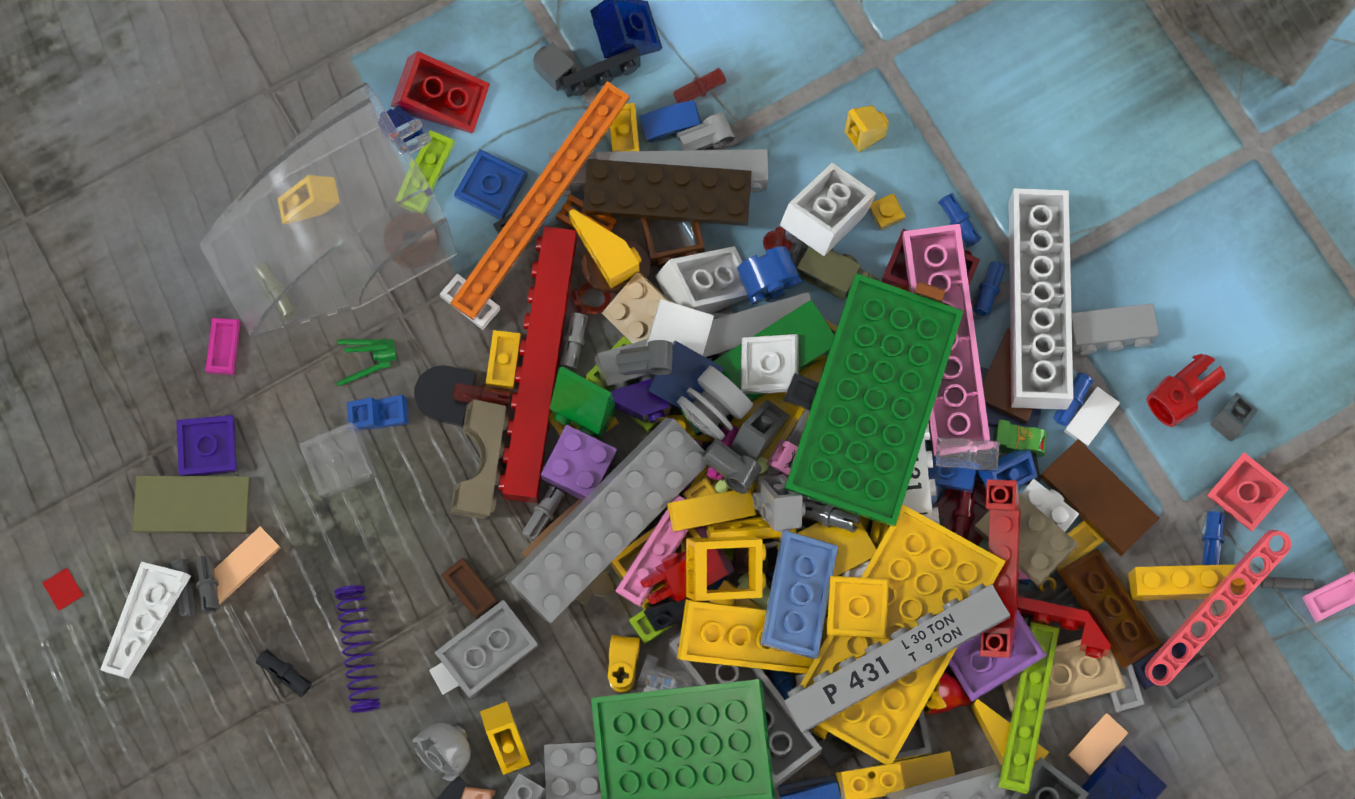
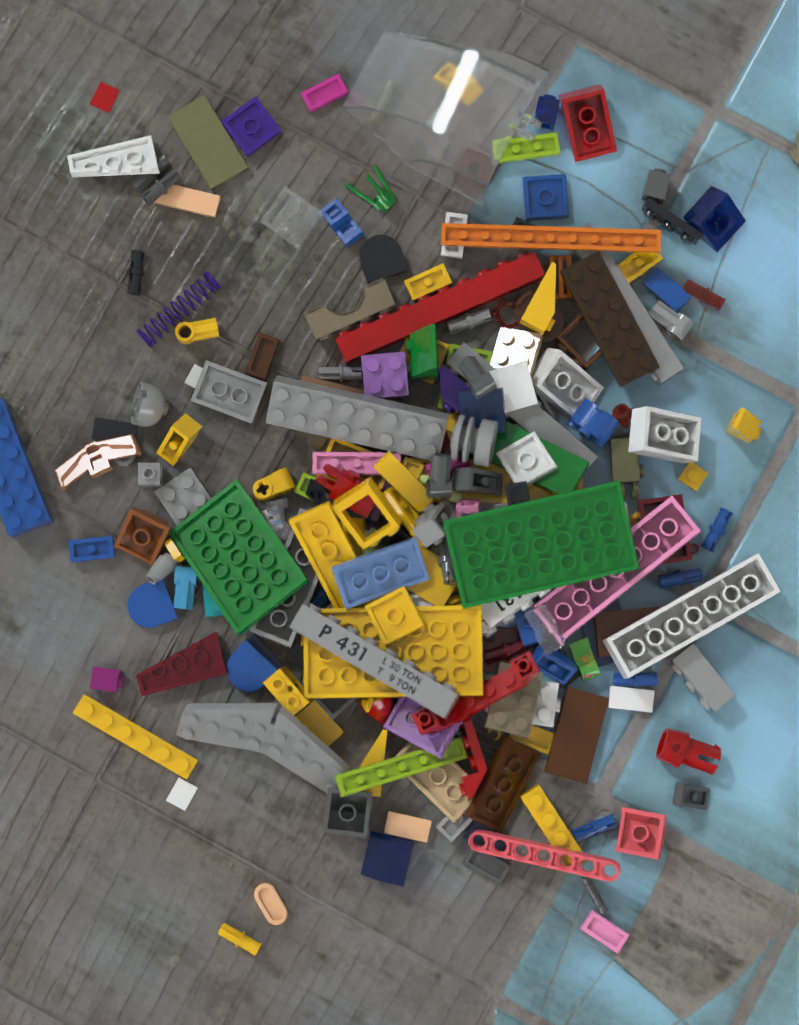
camera: 60 degrees right, 10 degrees up
(395, 640) = (199, 330): none -> yellow piece
(468, 393) = (394, 282): clear red axle -> none
(930, 292) = (637, 538): dark orange tile -> none

